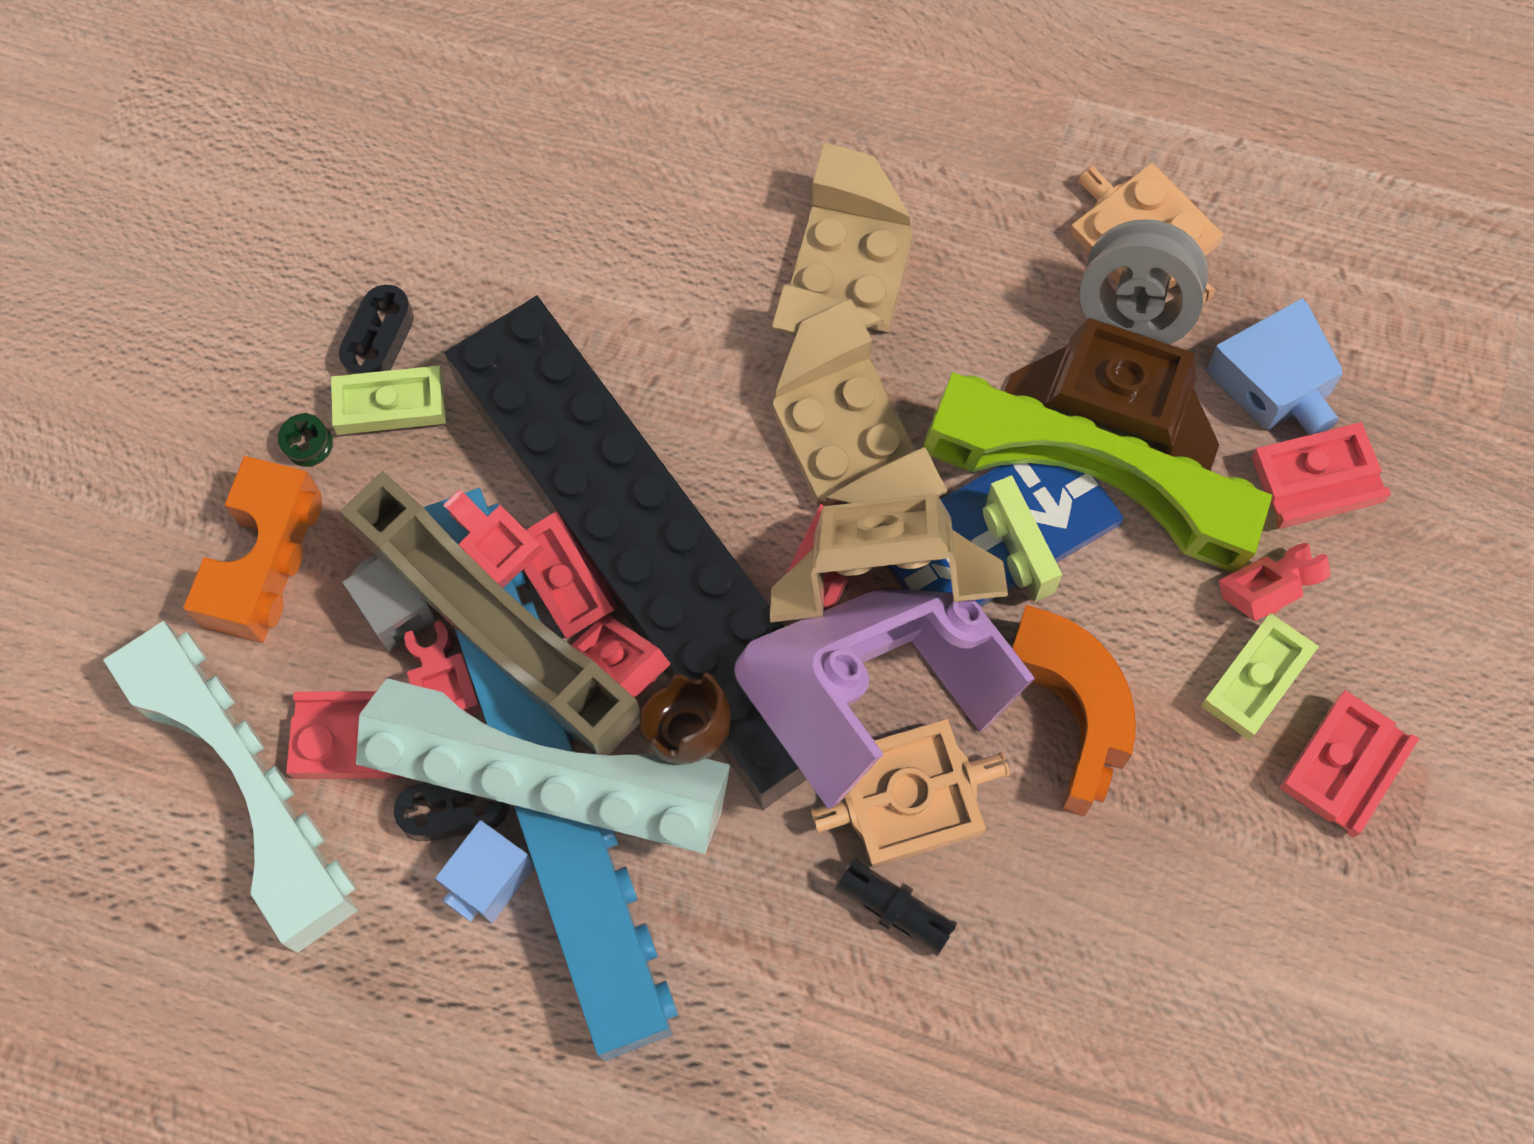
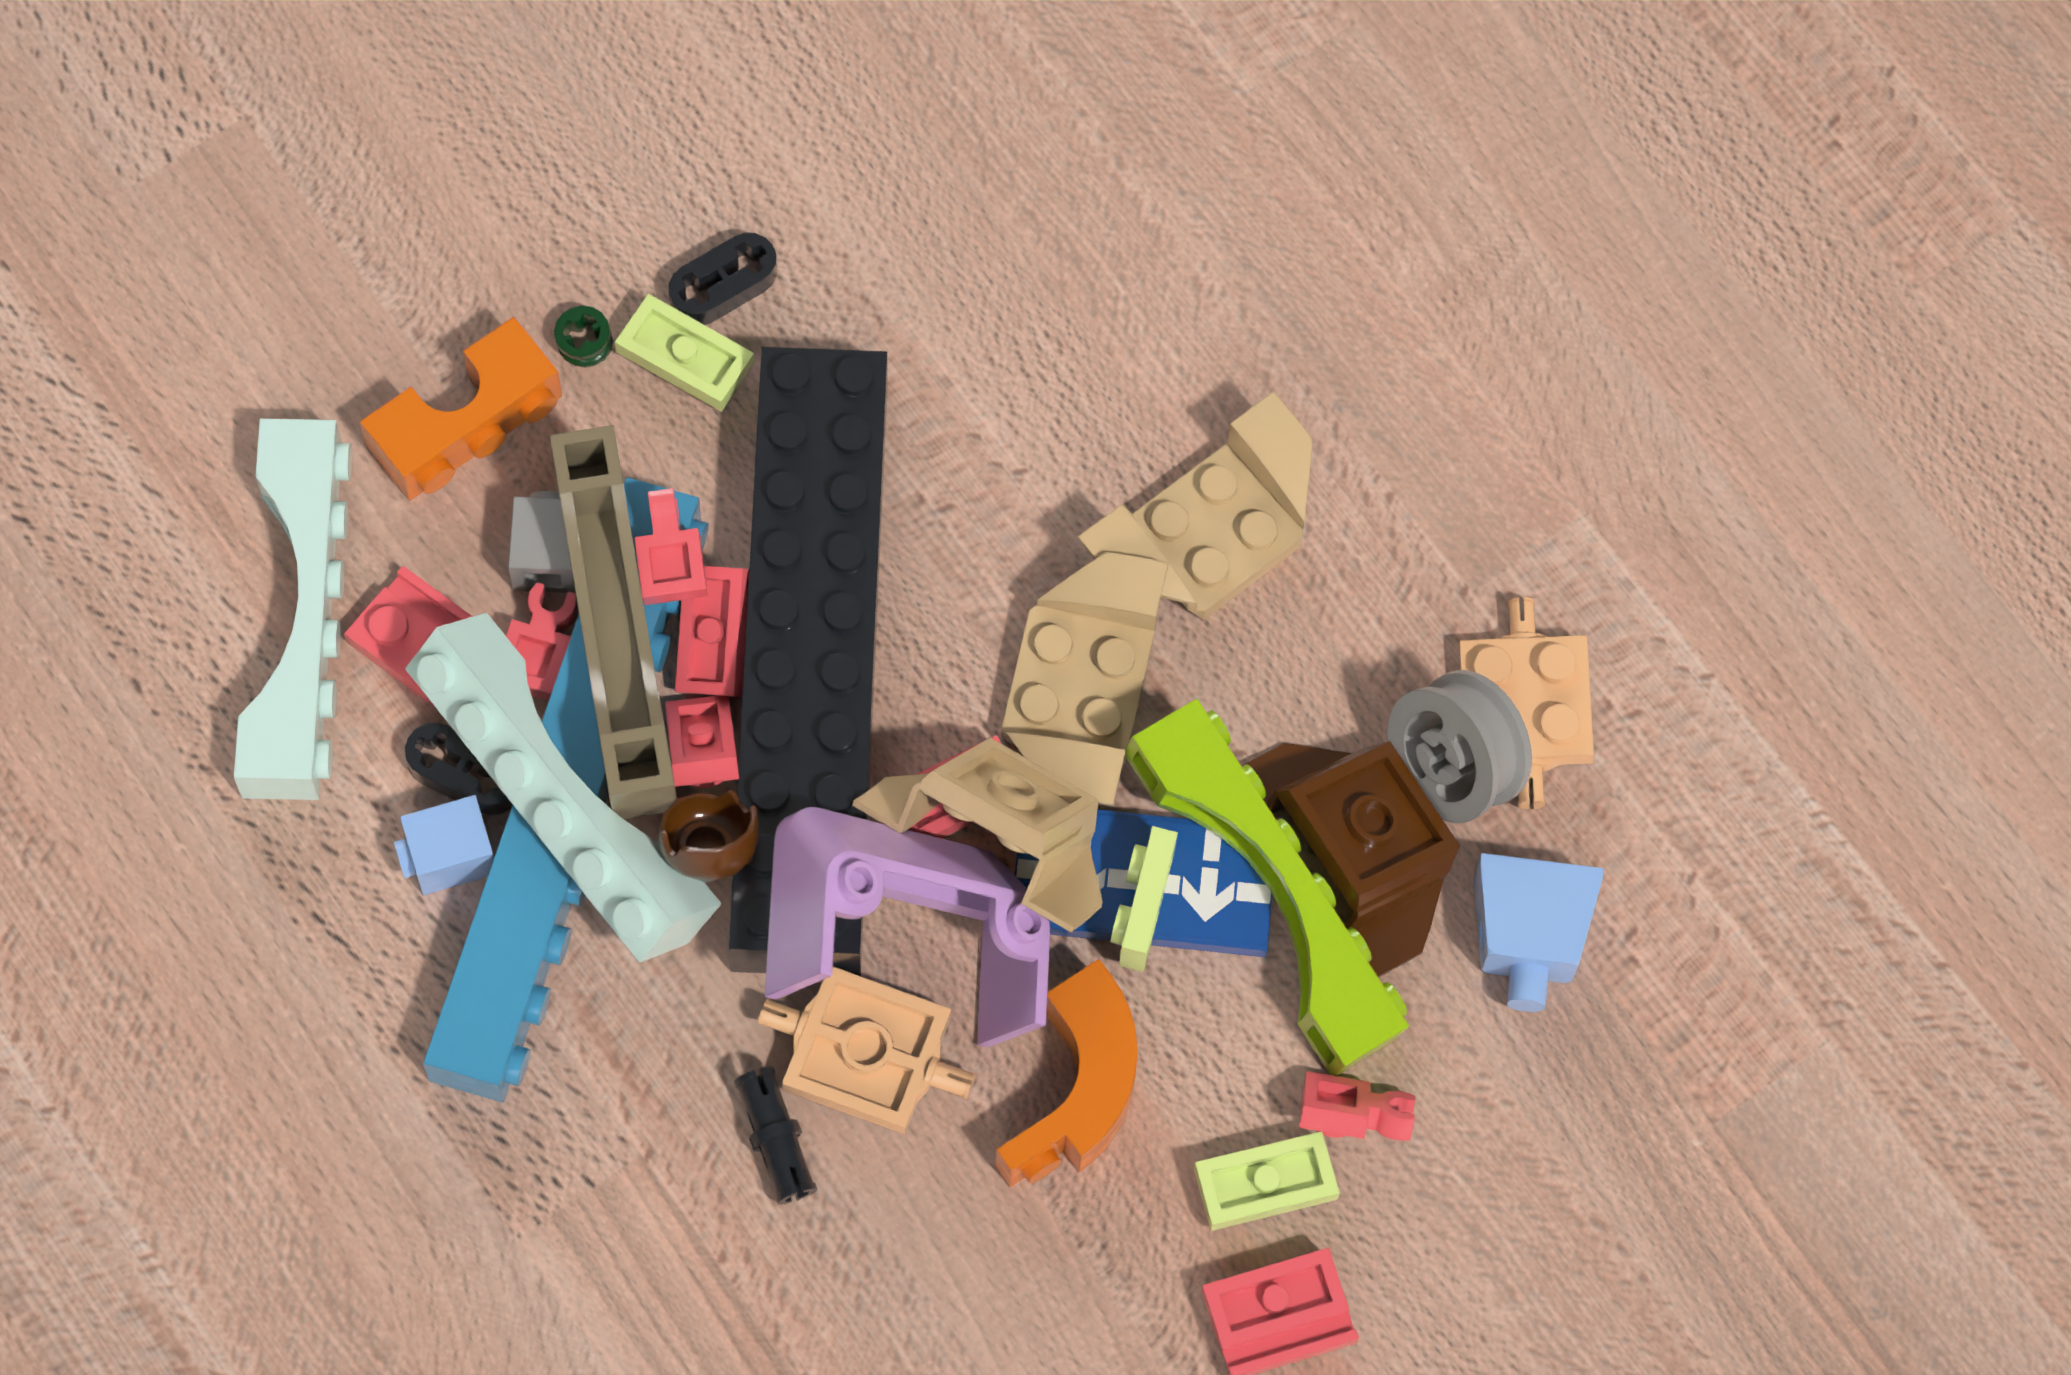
camera: 30 degrees right, 0 degrees up
(1320, 475) = (1485, 1046): coral plate -> none

